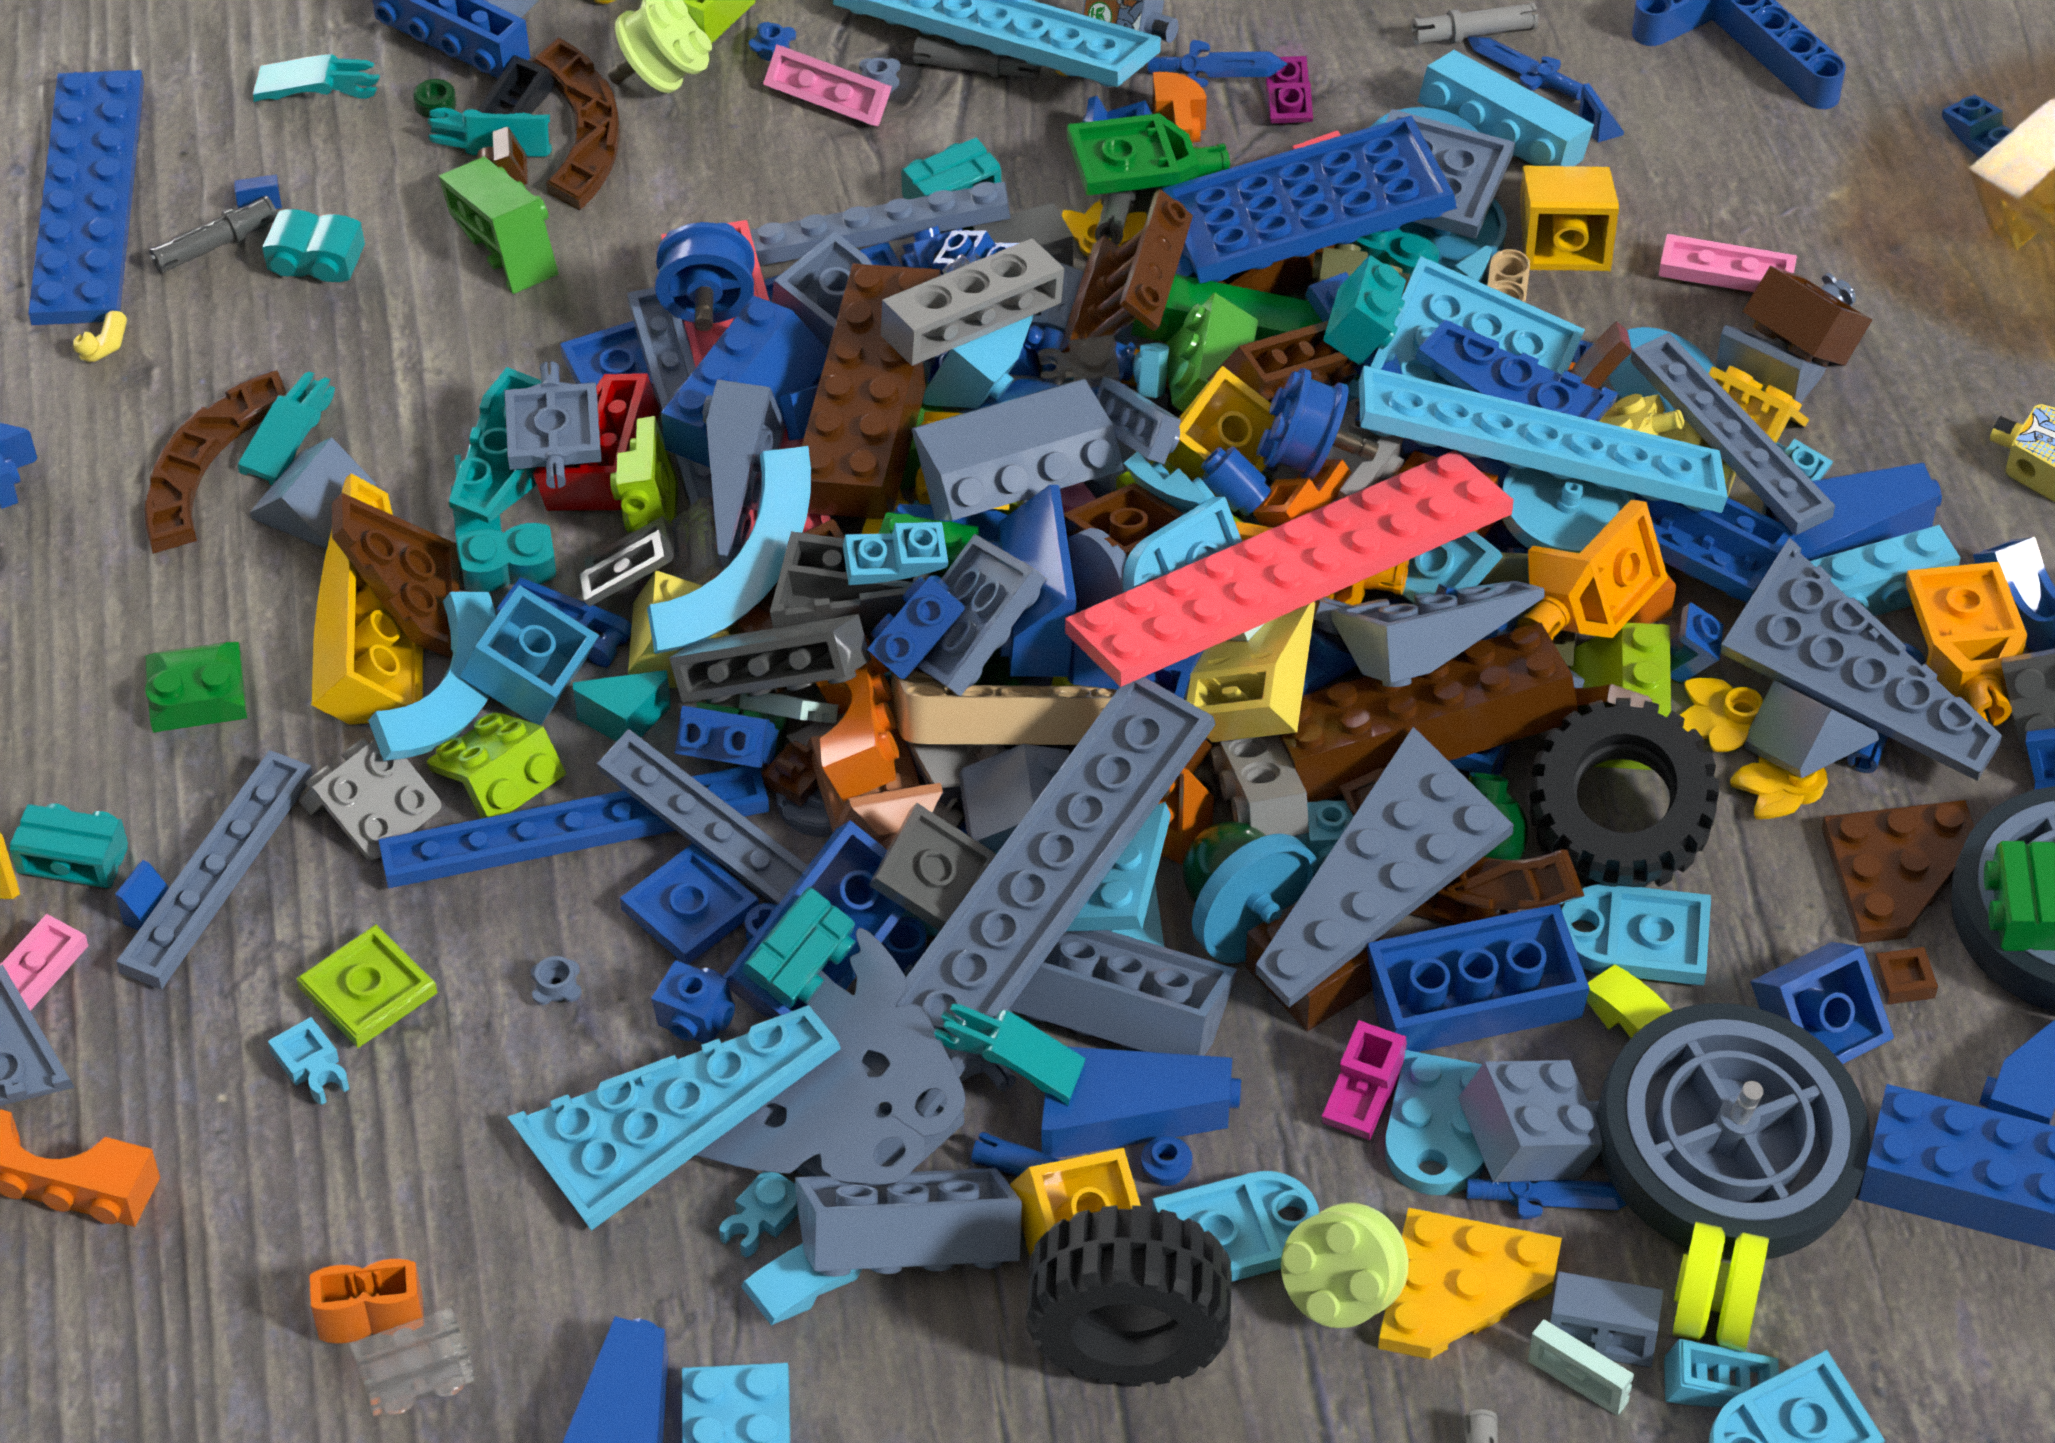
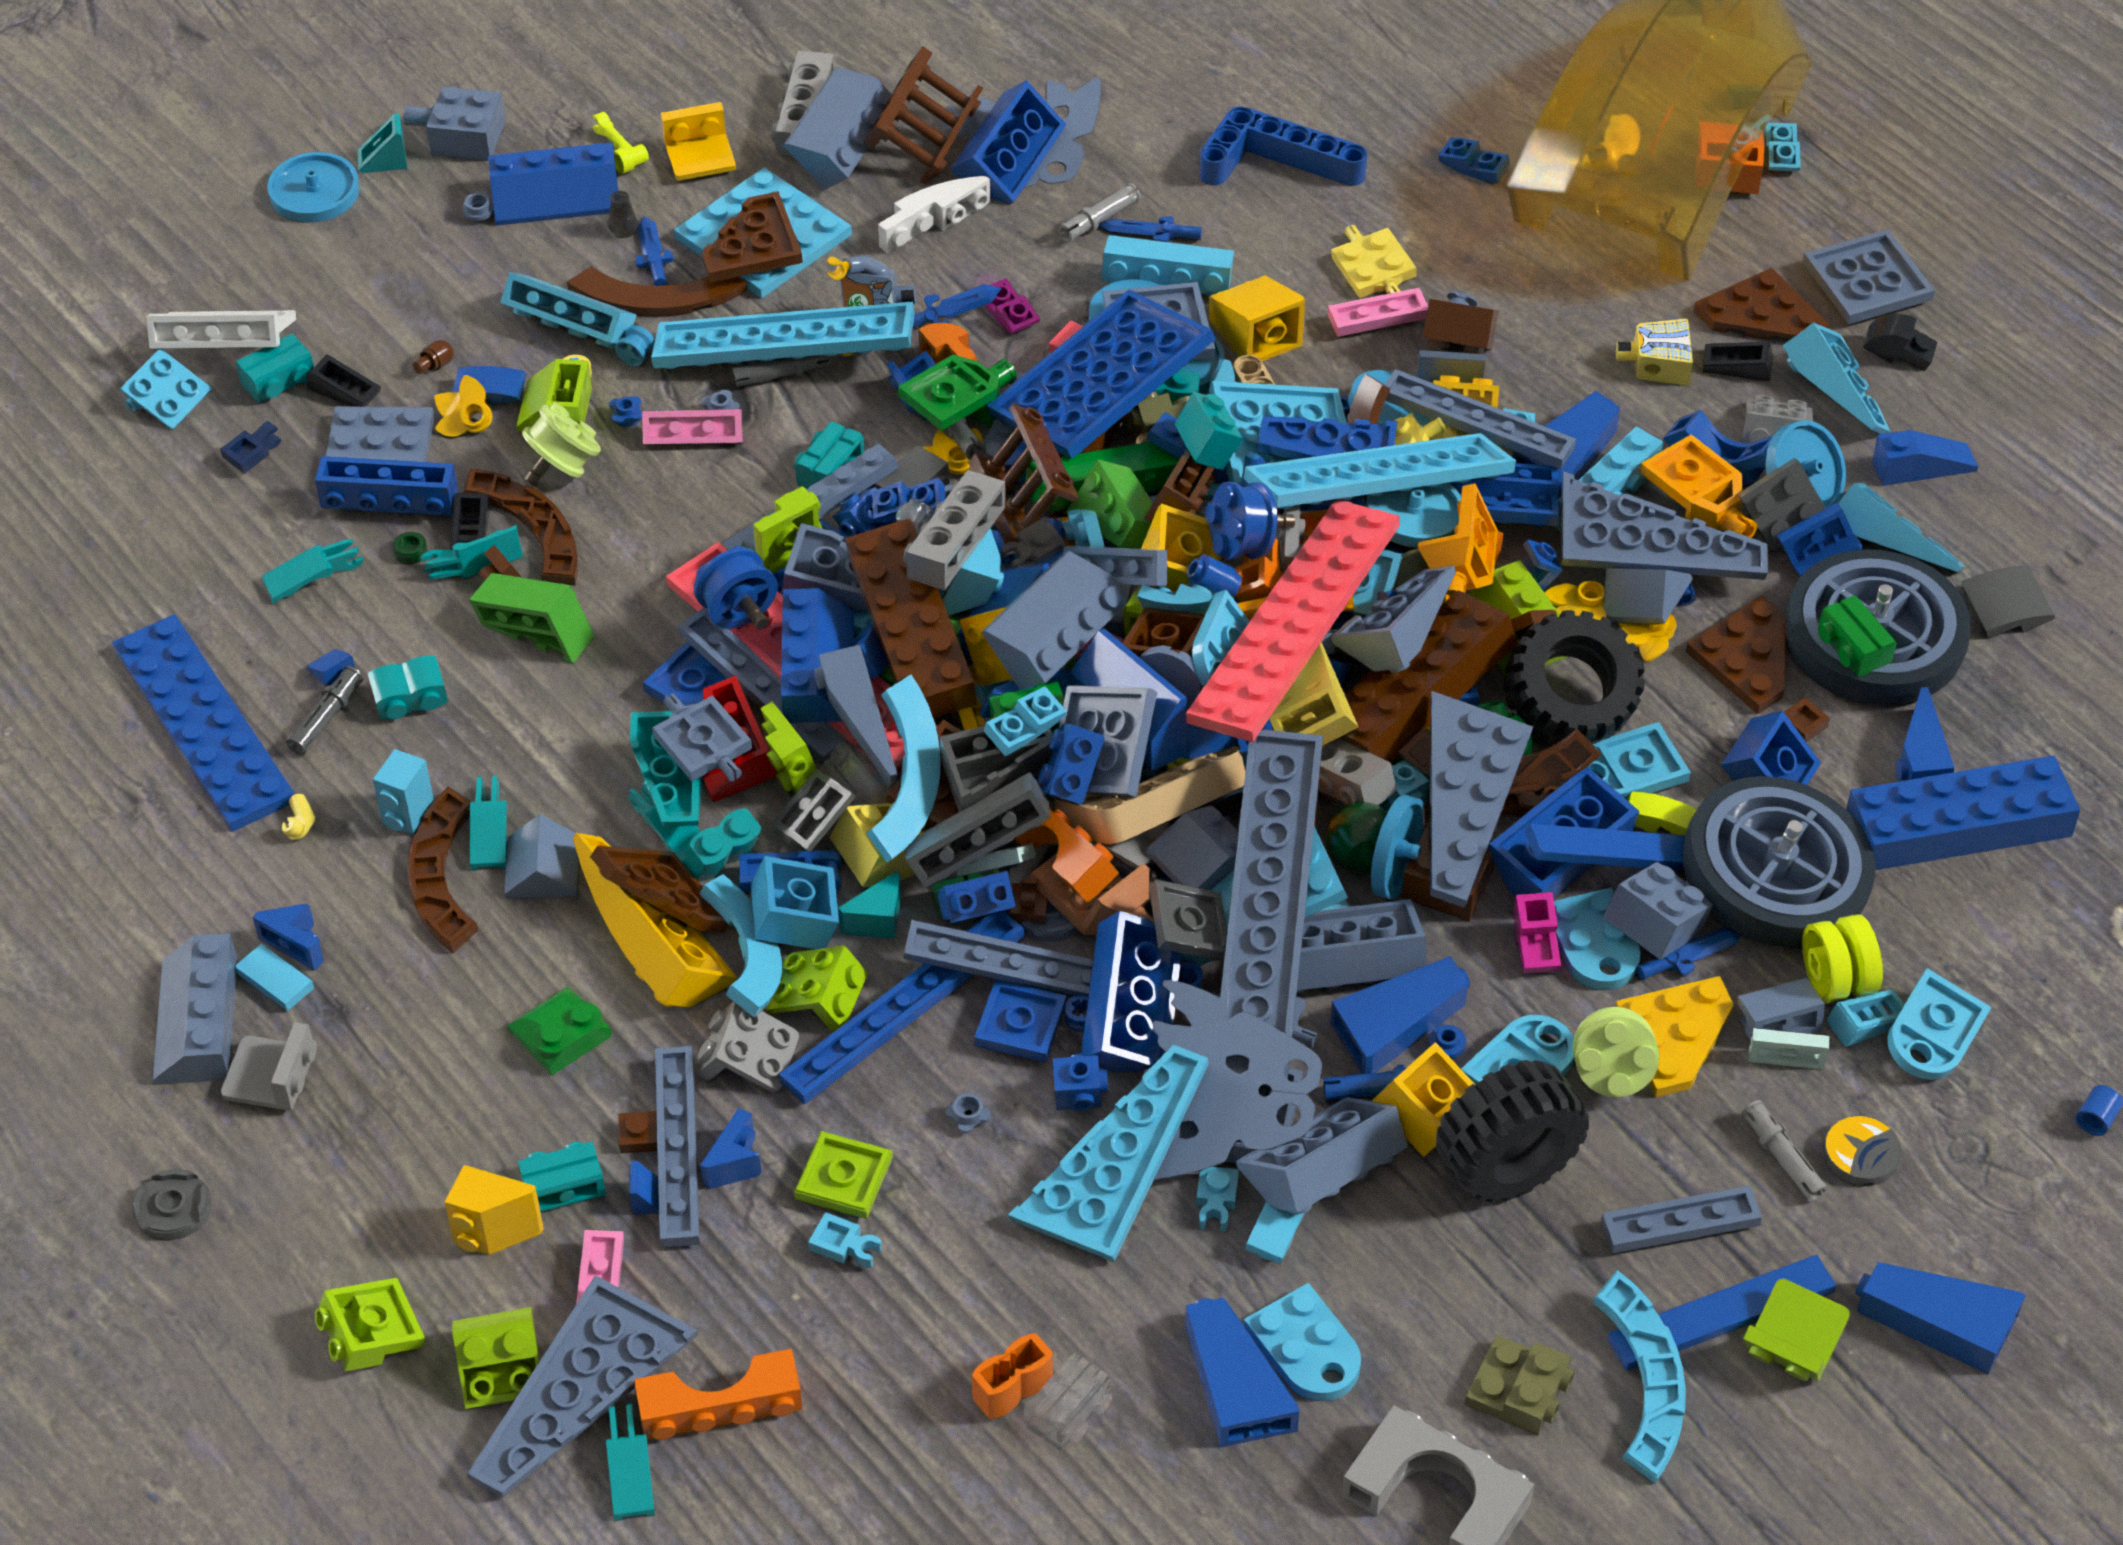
camera: 30 degrees left, 0 degrees up
(185, 832) = (637, 1132): none -> reddish brown plate
(212, 351) = (403, 791): none -> medium azure brick
(256, 905) = (731, 1156): none -> blue slope
(800, 948) = (1141, 1010): teal brick -> none
(804, 227) = (777, 532): none -> lime plate
(1015, 1045) = (1321, 1008): teal arm -> none
(1505, 1009) = (1605, 846): none -> blue tile
(1597, 113) = (1222, 240): blue slope -> none
(1767, 205) = (1373, 262): none -> light yellow plate

